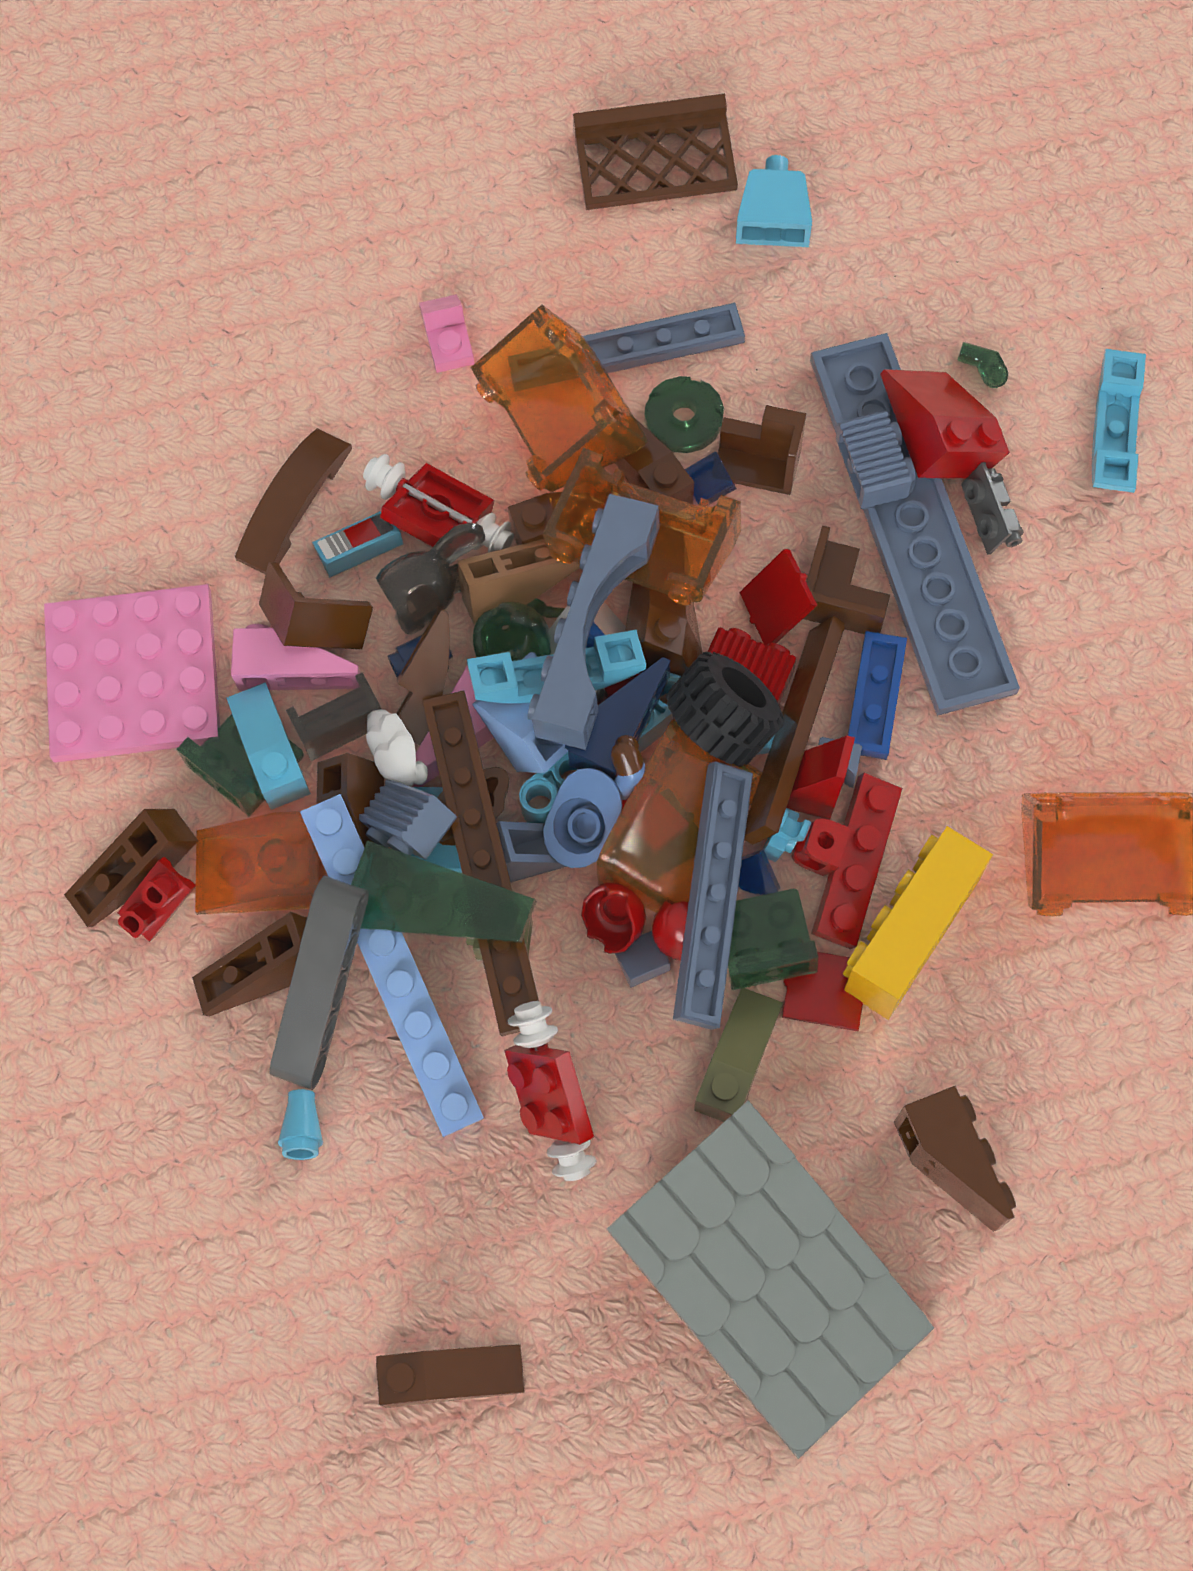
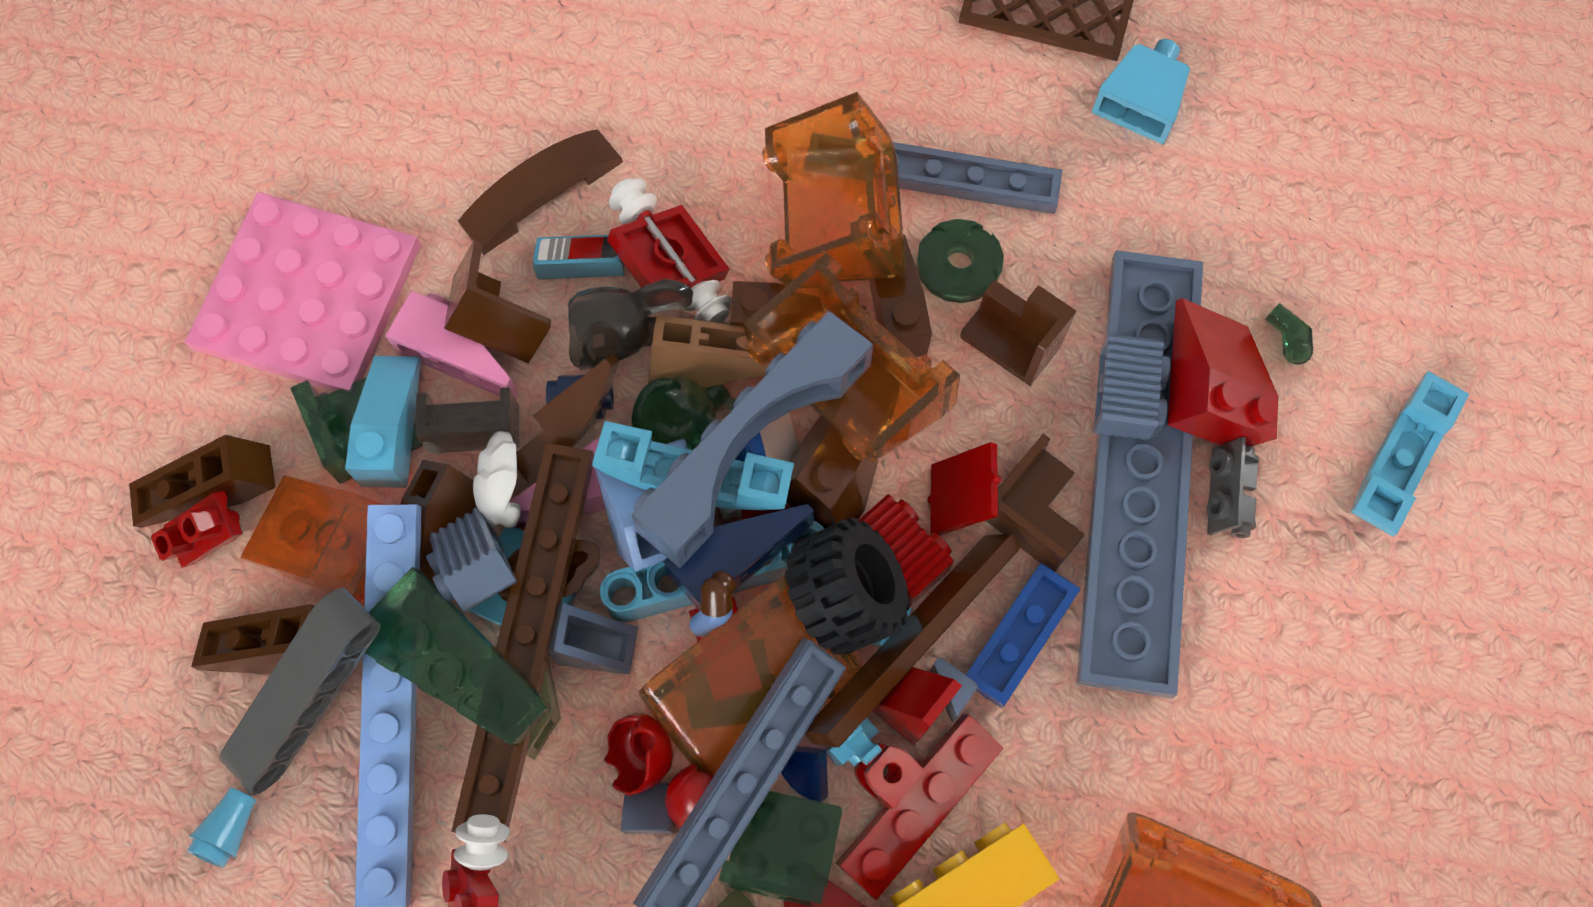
camera: 20 degrees right, 0 degrees up
(447, 333) = (765, 87): bright pink slope -> none
(582, 817) = (650, 635): medium blue piece -> none
(710, 478) = (953, 336): clear blue tile -> none

